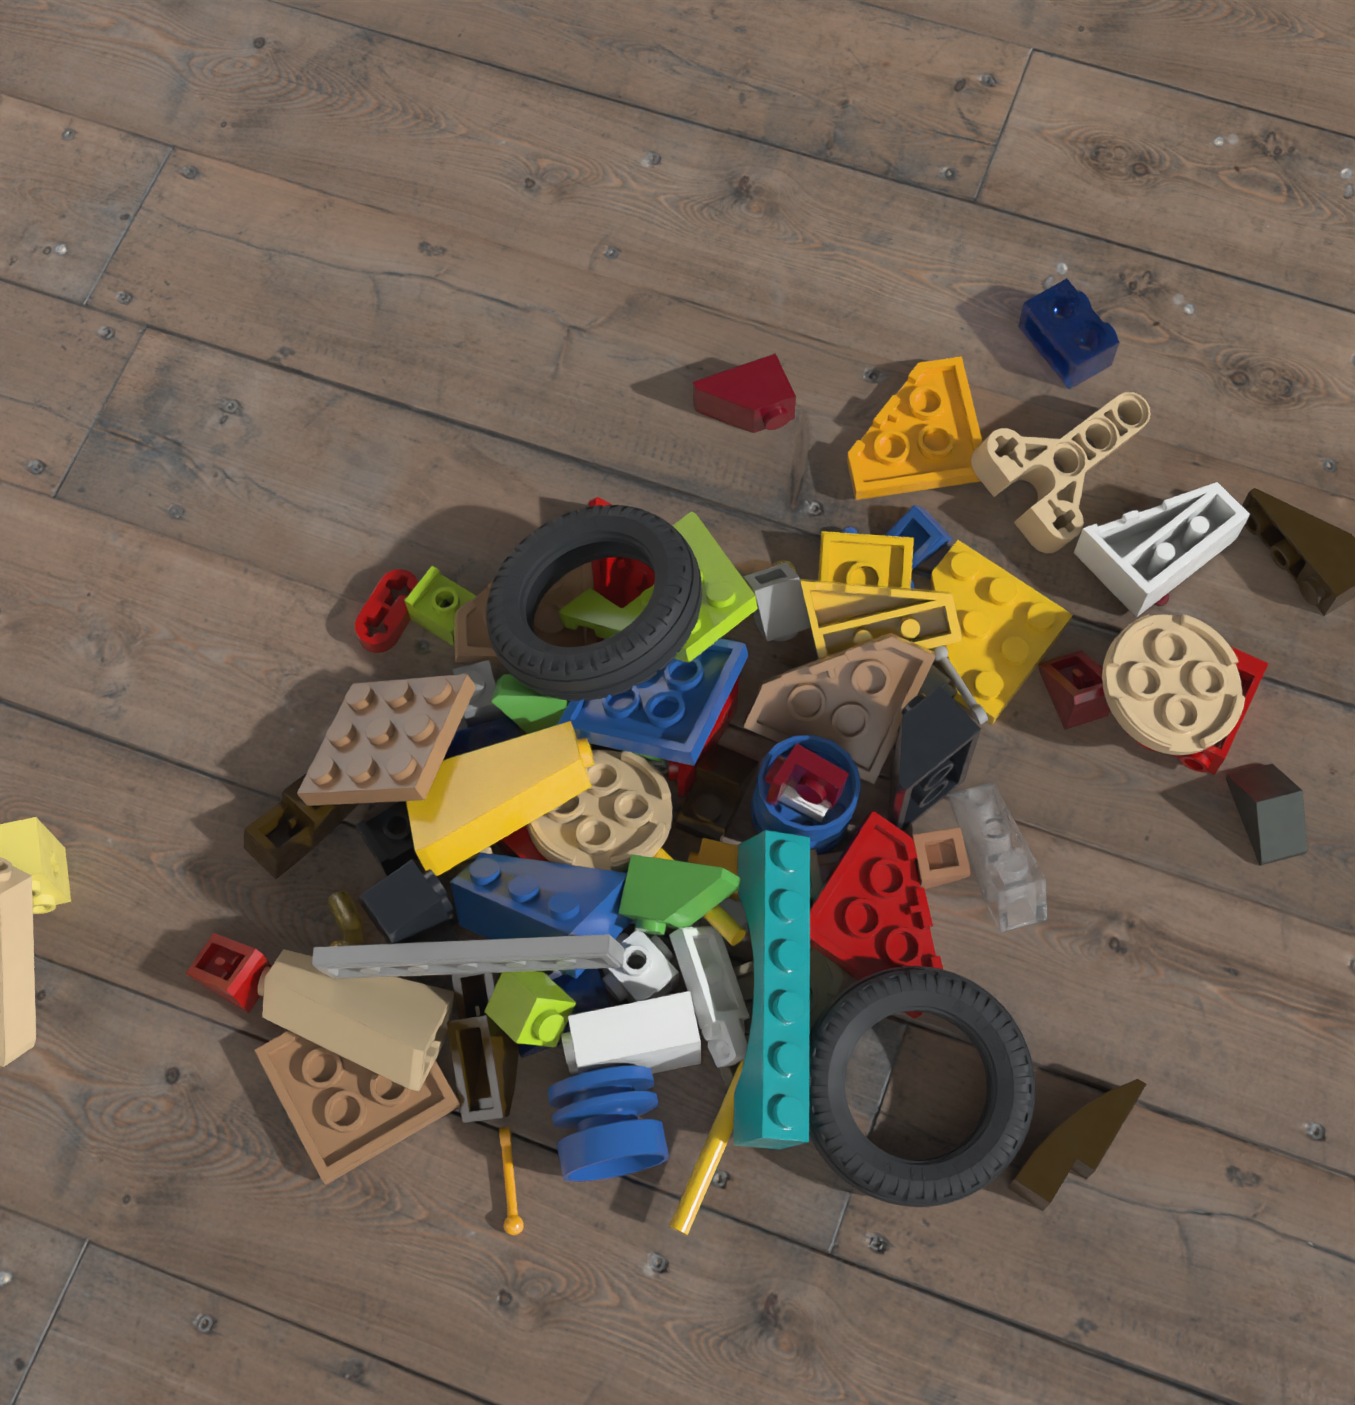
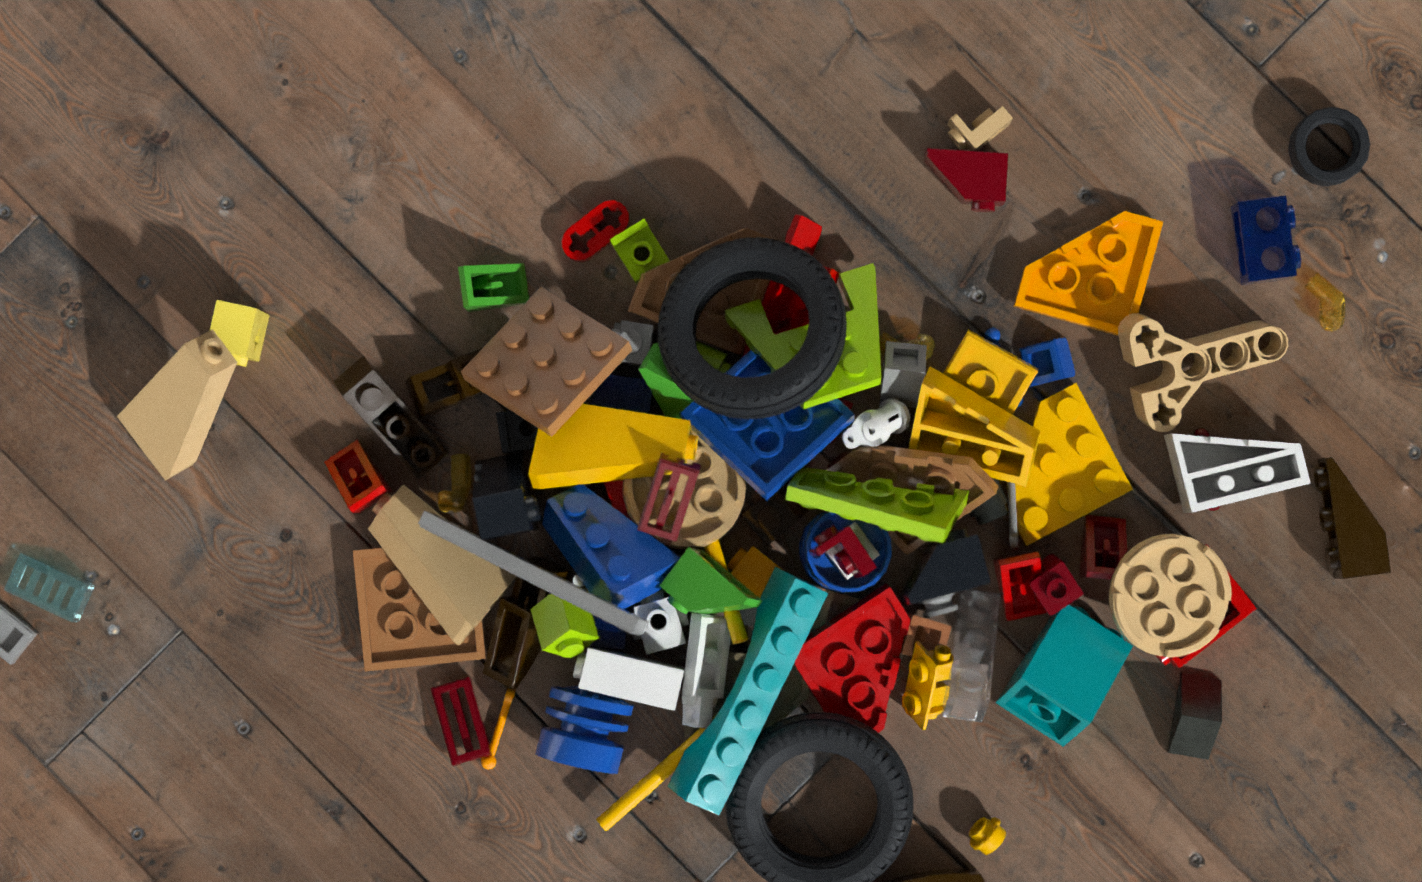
camera: 25 degrees right, 20 degrees up
(242, 888) = (390, 417): none -> dark brown slope
(297, 706) = (493, 286): none -> bright green slope
(487, 1222) = (471, 754): none -> dark red tile
(588, 851) = (677, 467): none -> dark red tile
(741, 348) = (986, 128): none -> tan bracket
(778, 647) = (873, 426): none -> white piece
(813, 713) = (878, 502): none -> lime wing
(934, 814) = (939, 606): none -> light grey bush
(965, 913) = (923, 691): none -> yellow hinge
(1010, 755) = (1013, 581): none -> red slope
(1048, 733) = (1055, 585): none -> dark red bracket
(1088, 204) = (1353, 127): none -> black tyre
(1108, 828) = (1065, 675): none -> teal slope
(1119, 1039) = (986, 835): none -> yellow plate
(1164, 362) = (1331, 302): none -> clear yellow arm

